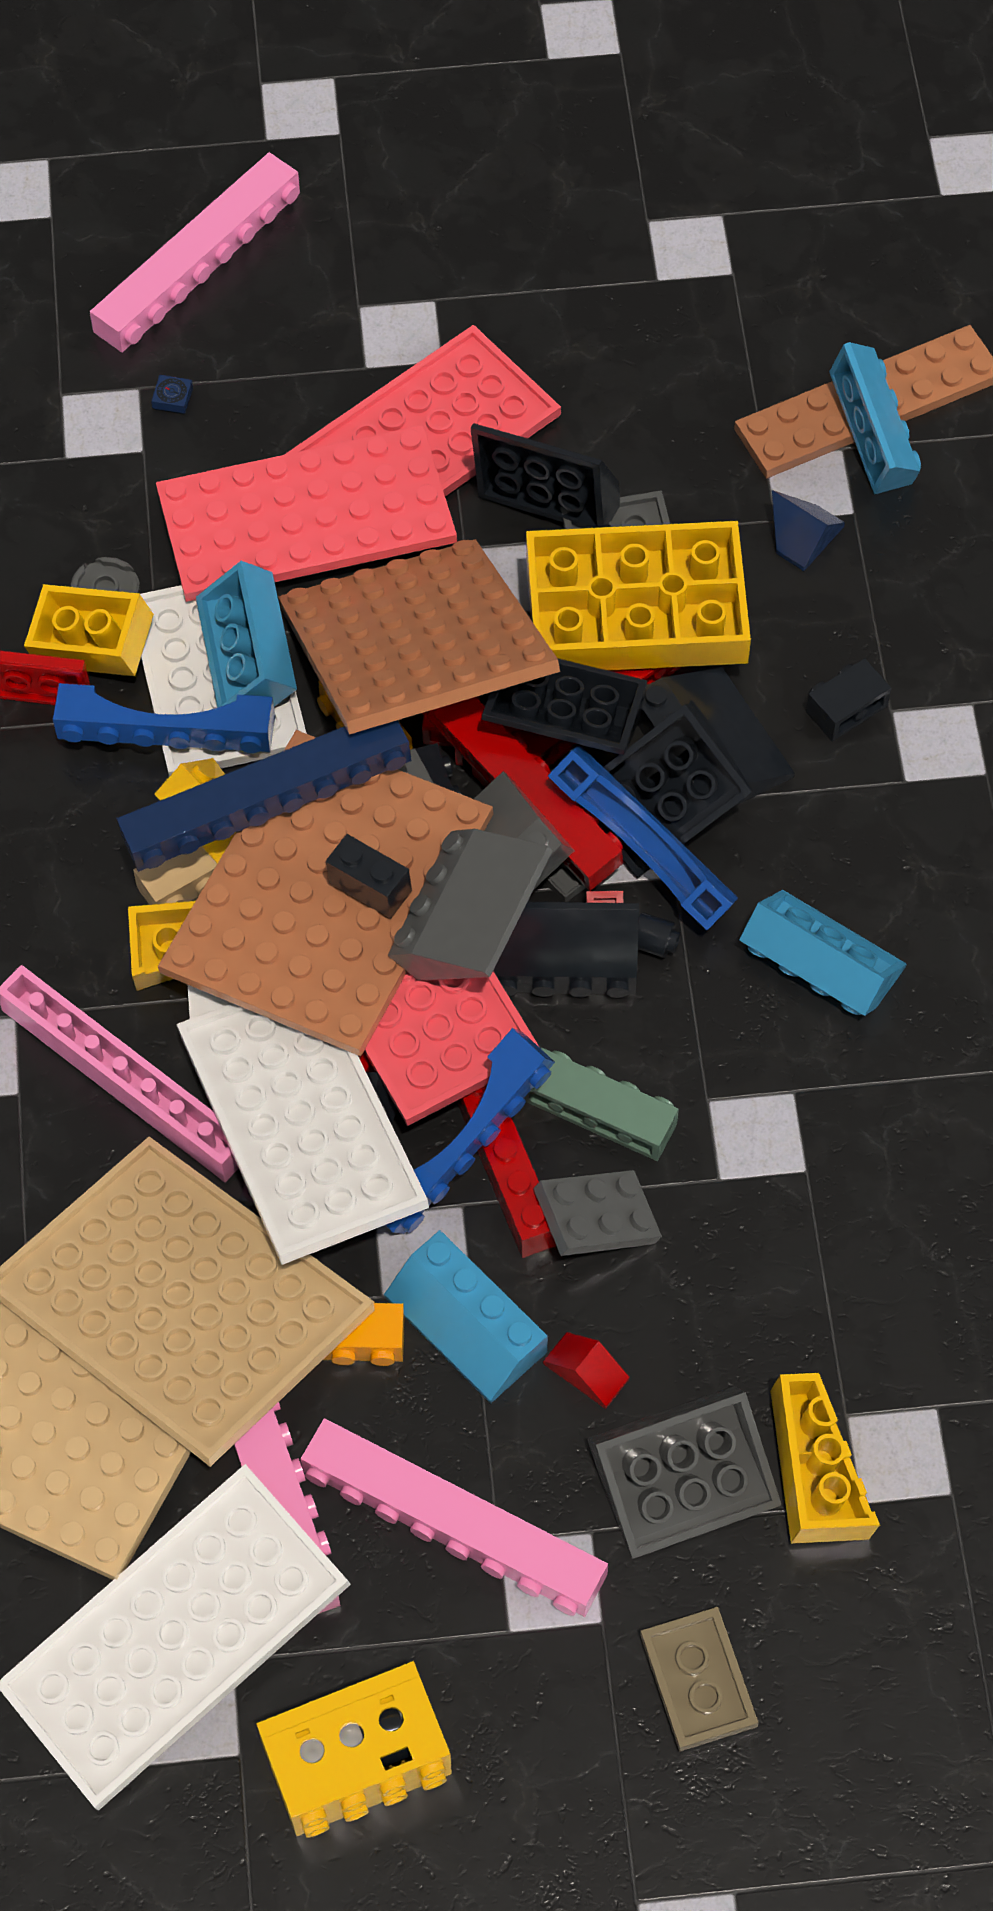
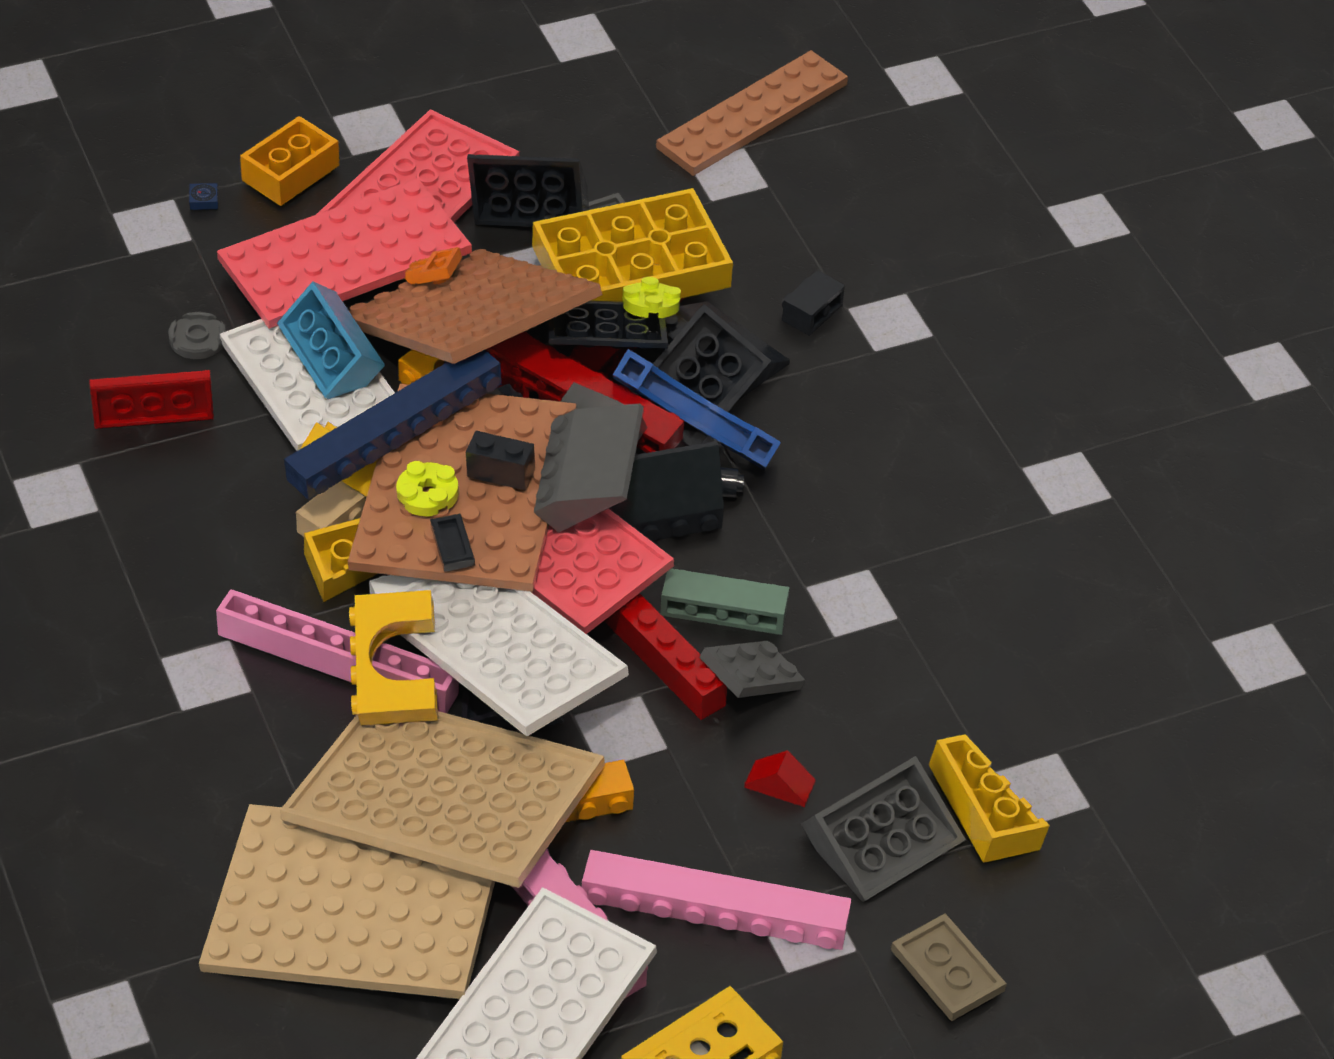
camera: 20 degrees left, 15 degrees down
(91, 626) = (201, 347): yellow brick -> none
(159, 1059) = (375, 621): none -> yellow arch
(195, 252) = (188, 98): bright pink brick -> none
(236, 726) = (229, 415): blue arch -> none
(275, 871) = (428, 474): none -> neon yellow plate
(281, 974) = (452, 542): none -> black tile
(282, 368) = (289, 160): none -> light orange brick
(399, 564) = (434, 269): none -> orange hinge
(467, 1317) = (677, 762): dark azure slope -> none
(514, 1071) = (663, 568): blue arch -> none
(616, 672) = (651, 297): none -> neon yellow plate
(802, 529) = (734, 201): dark blue slope -> none
(821, 952) = (855, 469): dark azure slope -> none
(874, 418) = (764, 116): dark azure slope -> none

